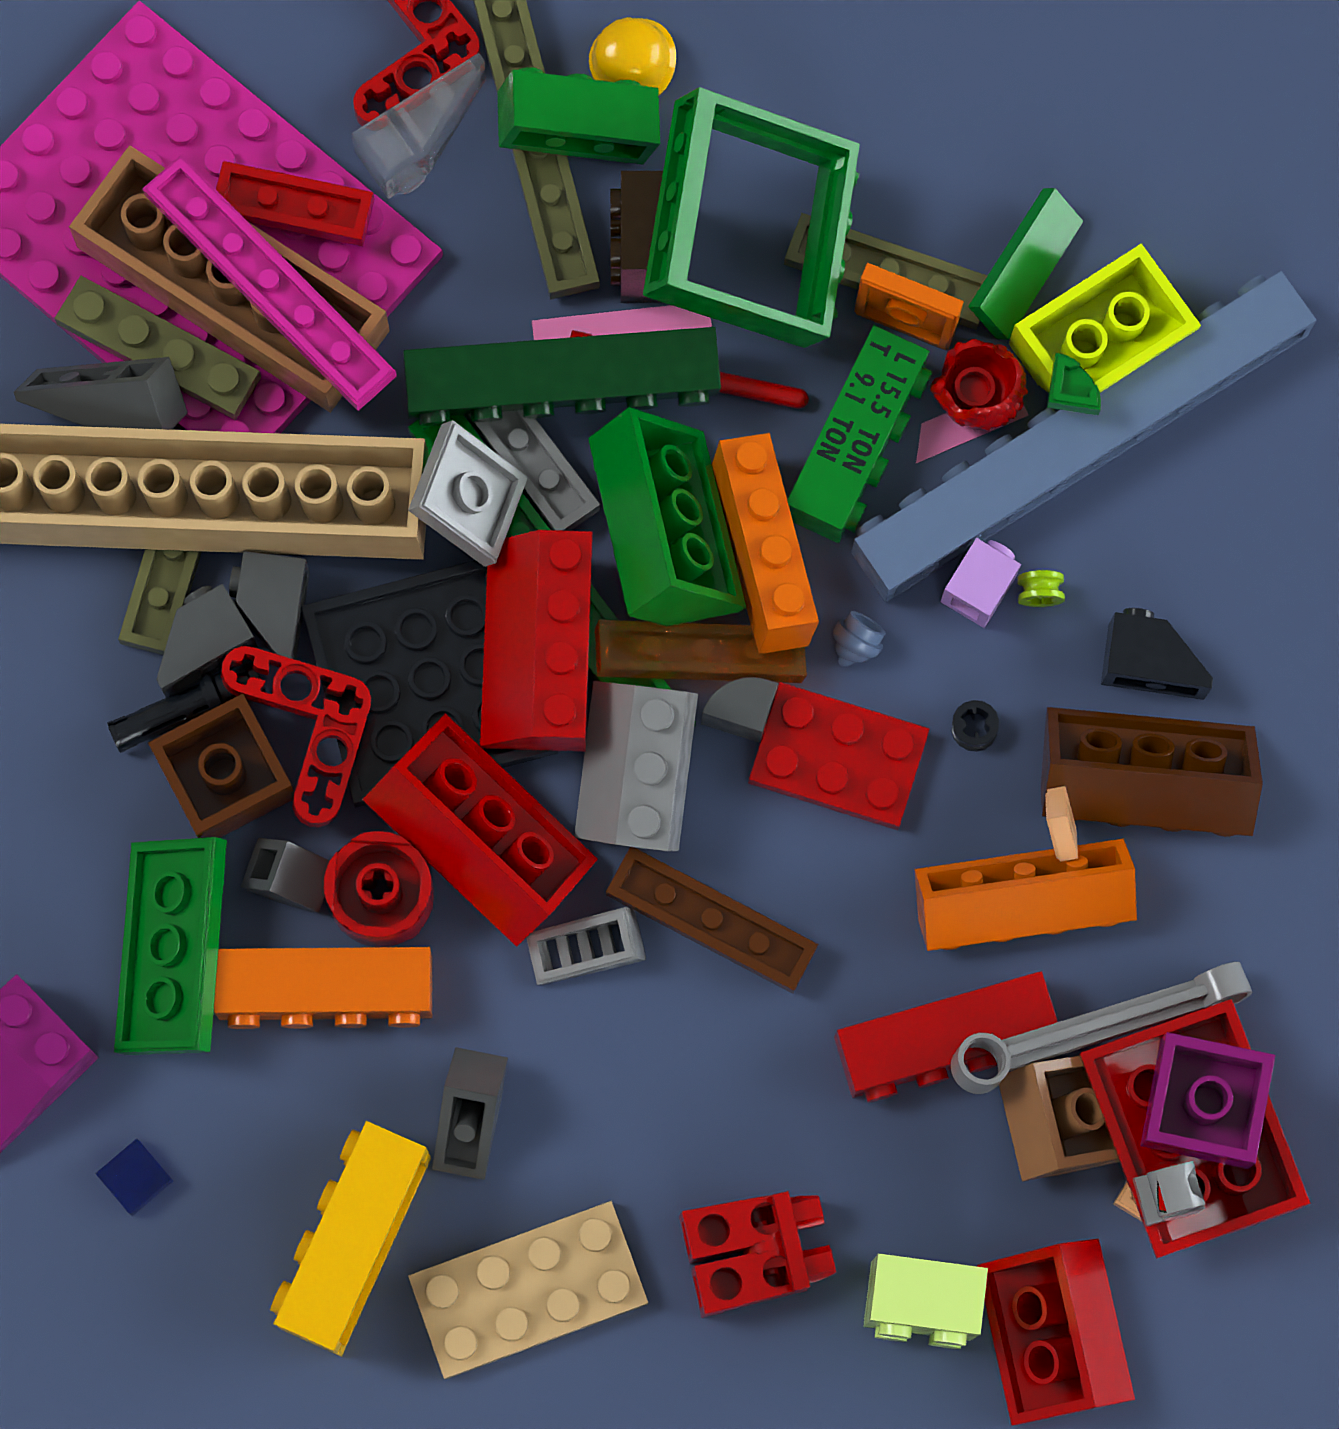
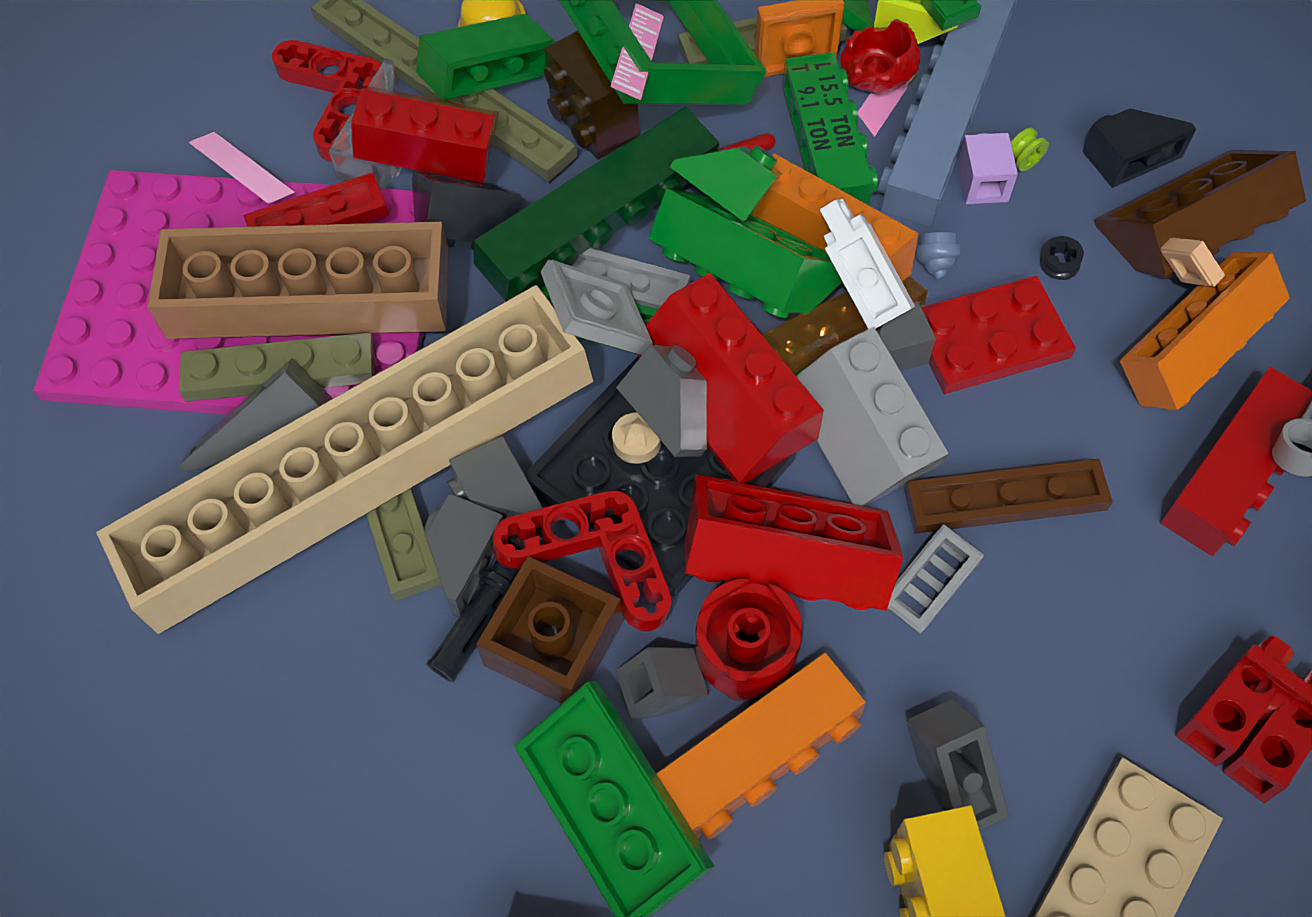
camera: 30 degrees left, 15 degrees down
(264, 84) = (241, 167): none -> bright pink sticker
(269, 282) = (338, 250): dark pink tile -> none
(422, 641) = (634, 439): none -> tan tile
(436, 285) = (461, 205): none -> black slope
(455, 175) = (423, 133): none -> red slope
(469, 630) = (670, 398): none -> dark grey slope
(687, 439) = (731, 177): none -> green slope
(711, 234) = (646, 28): none -> bright pink sticker
(737, 620) = (864, 266): none -> white hinge

